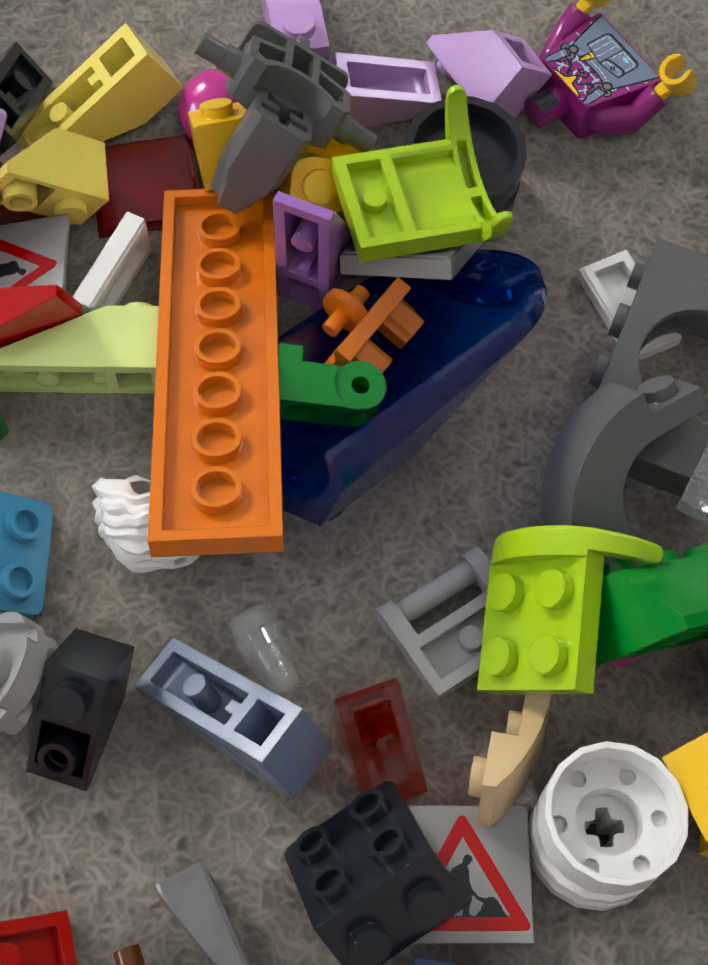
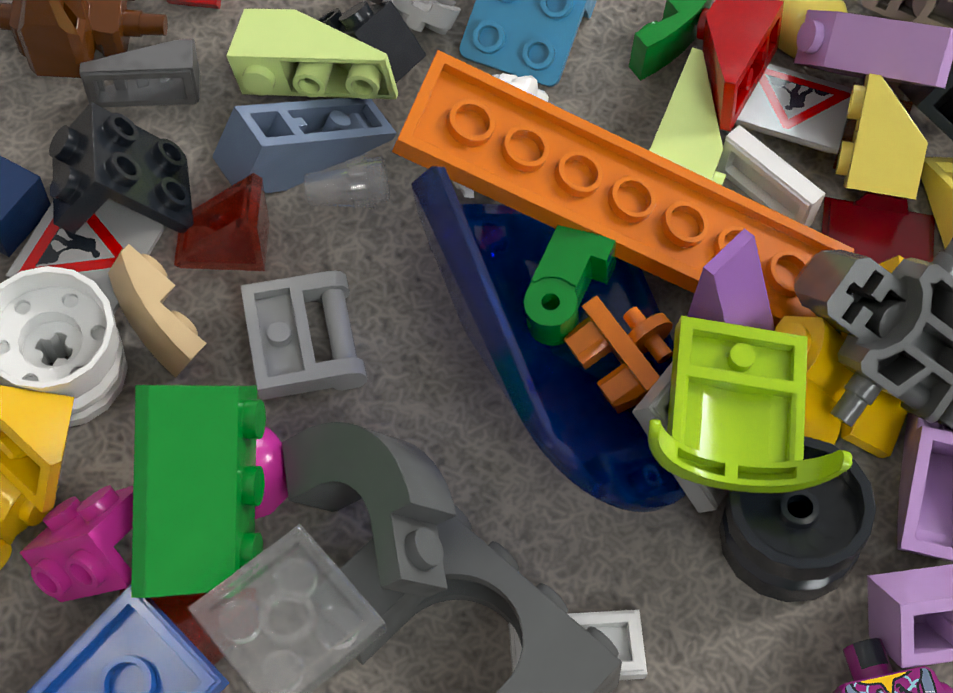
camera: 110 degrees right, 5 degrees down
(126, 767) = (300, 56): none -> yellowish green slope
(547, 607) = (260, 357): lime piece -> none

